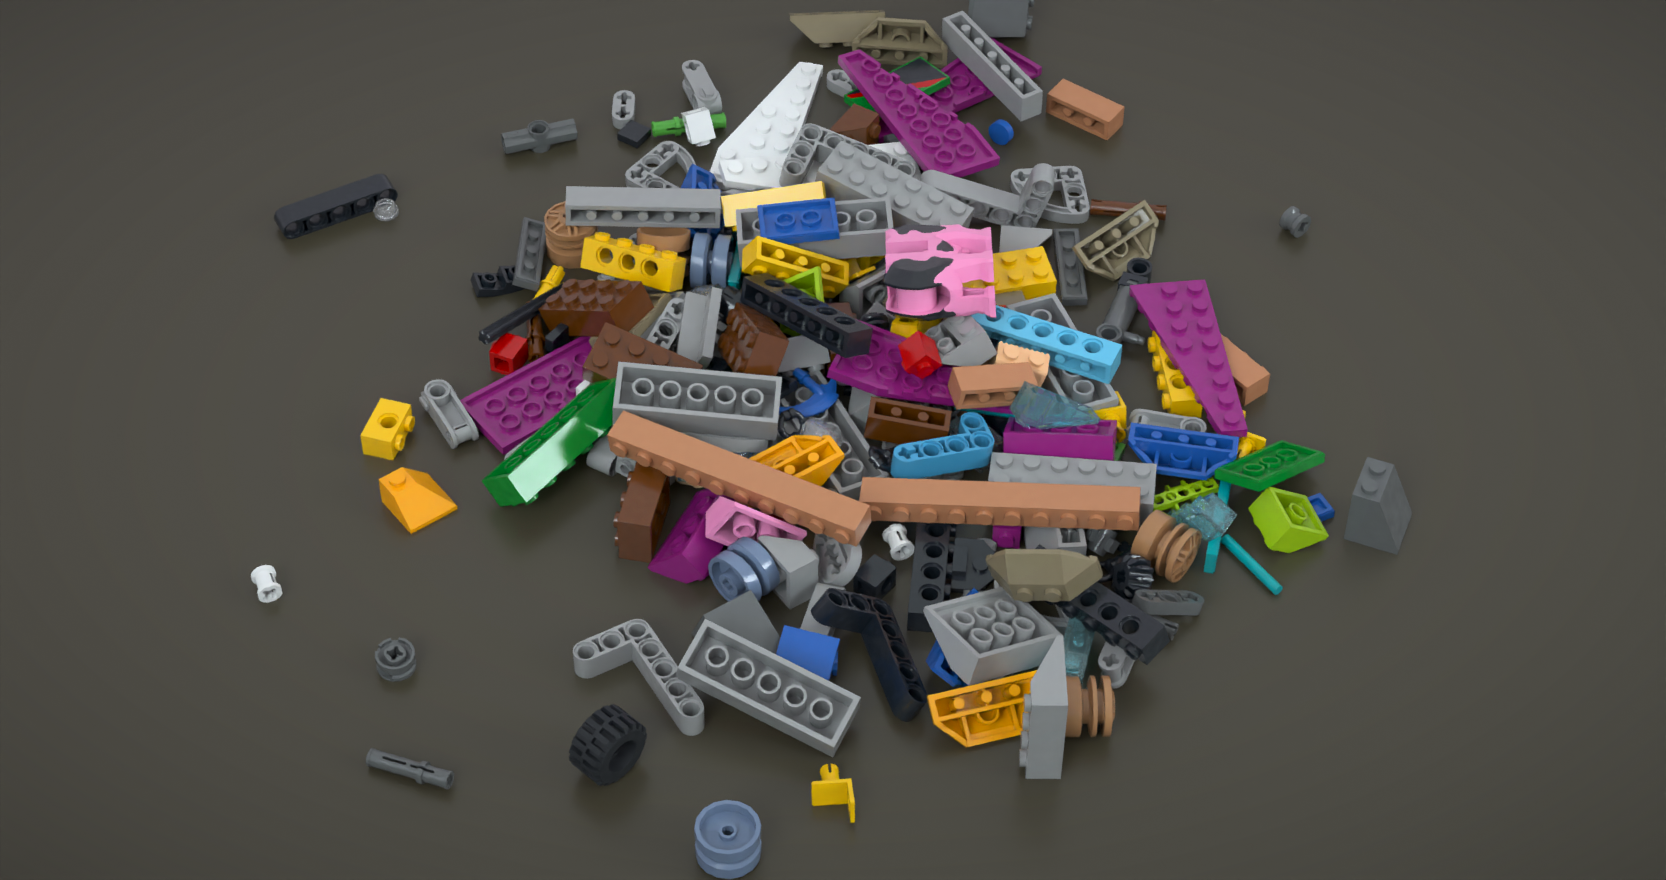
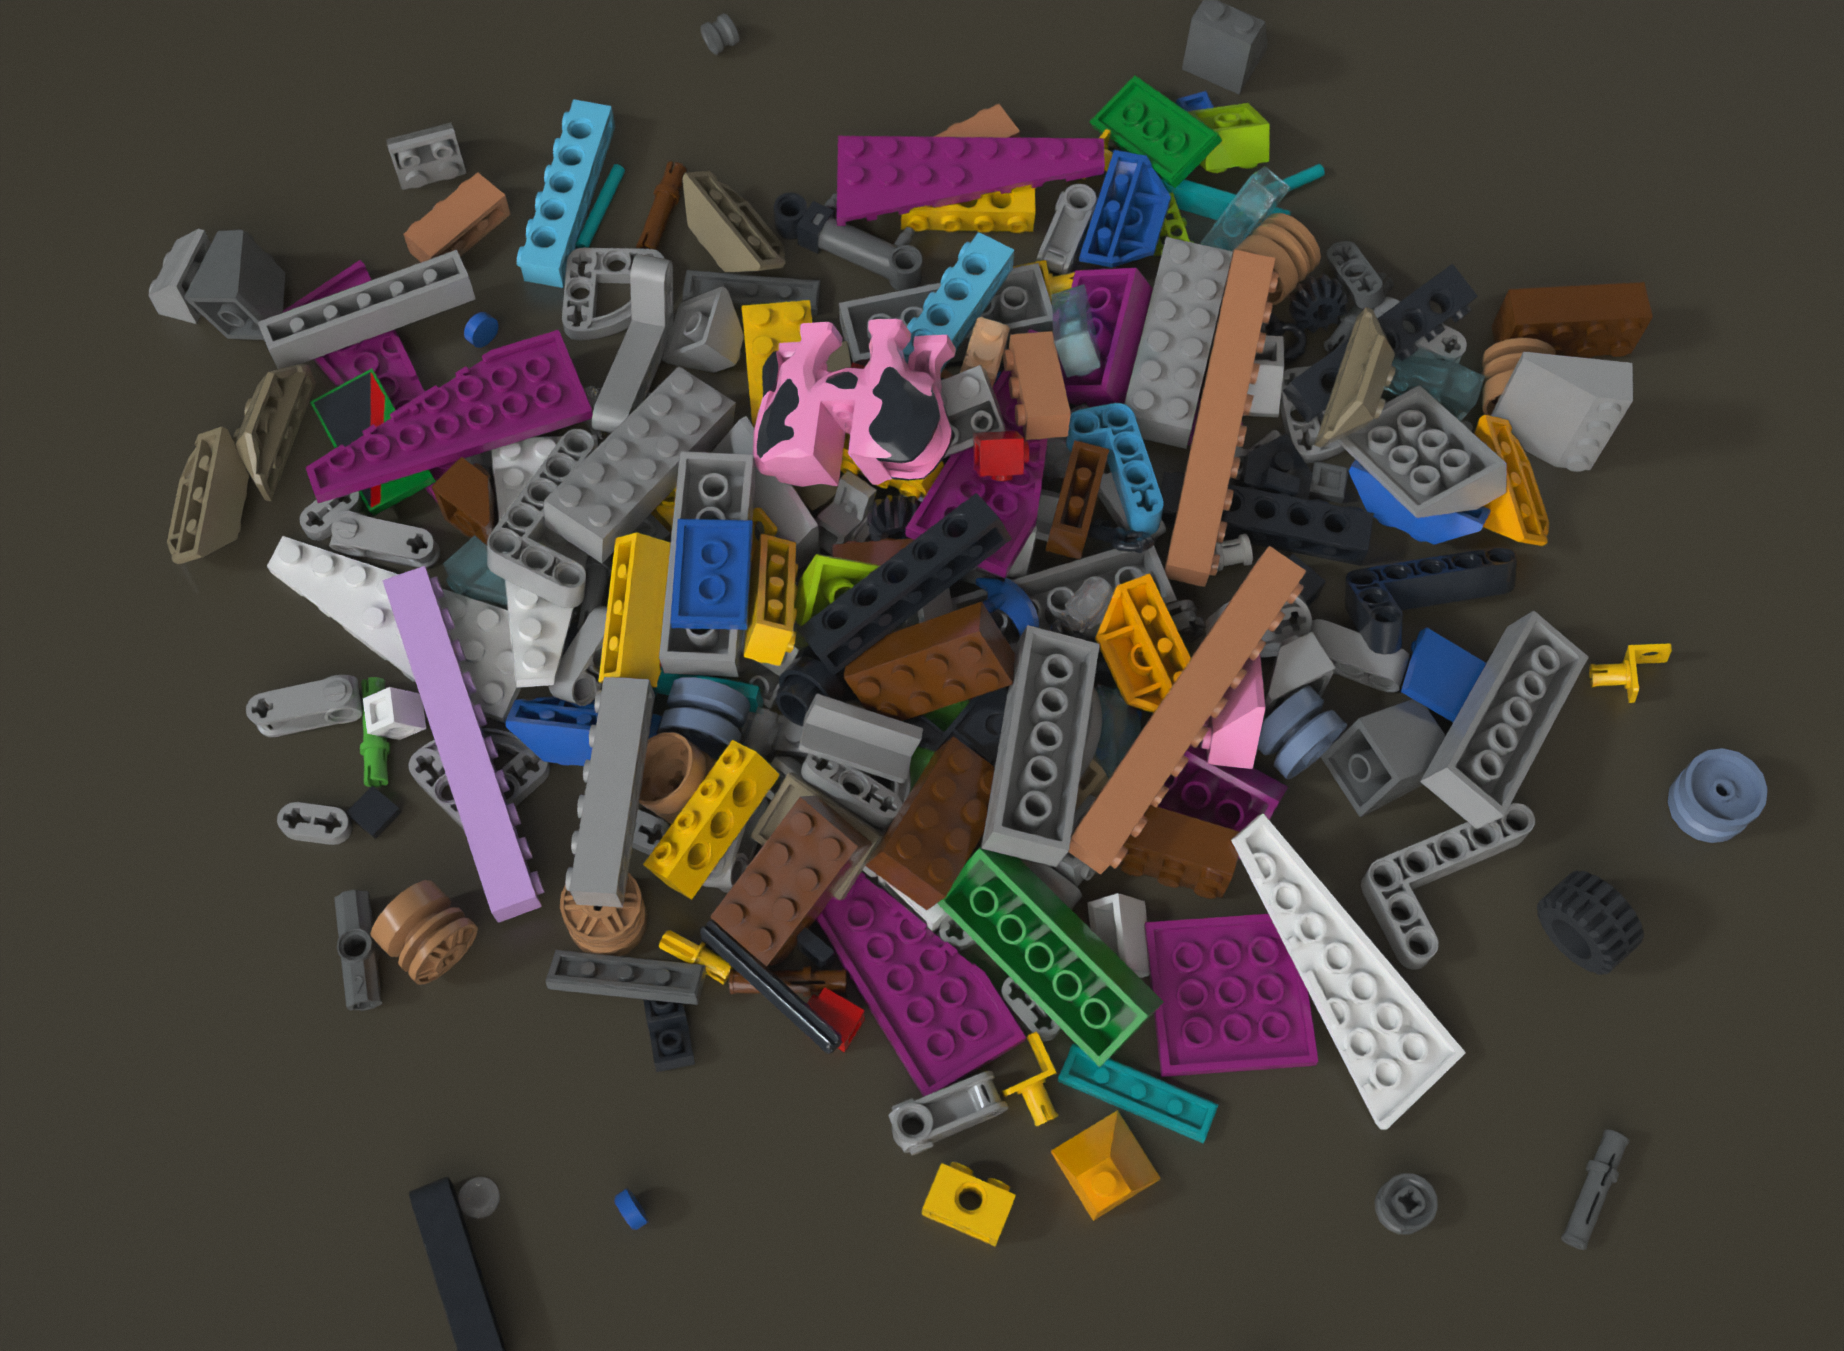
camera: 85 degrees left, 20 degrees up
(379, 274) = (631, 1209): none -> blue tile
(466, 520) = (1139, 1094): none -> teal tile
(469, 455) = (1033, 1088): none -> yellow bracket
(529, 627) = (1370, 1011): none -> white wing
(543, 557) = (1227, 997): none -> magenta plate
(548, 155) = (424, 931): none -> medium nougat wheel
(580, 496) = (1120, 925): none -> white brick
(696, 146) = (462, 745): none -> lavender brick
(826, 101) = (383, 540): none -> light grey piece
(1123, 181) = (600, 207): none -> teal bar
(1130, 159) = (566, 192): none -> medium azure brick
(1136, 83) = (426, 156): none -> light grey slope
(1152, 742) = (1577, 319): none -> reddish brown brick

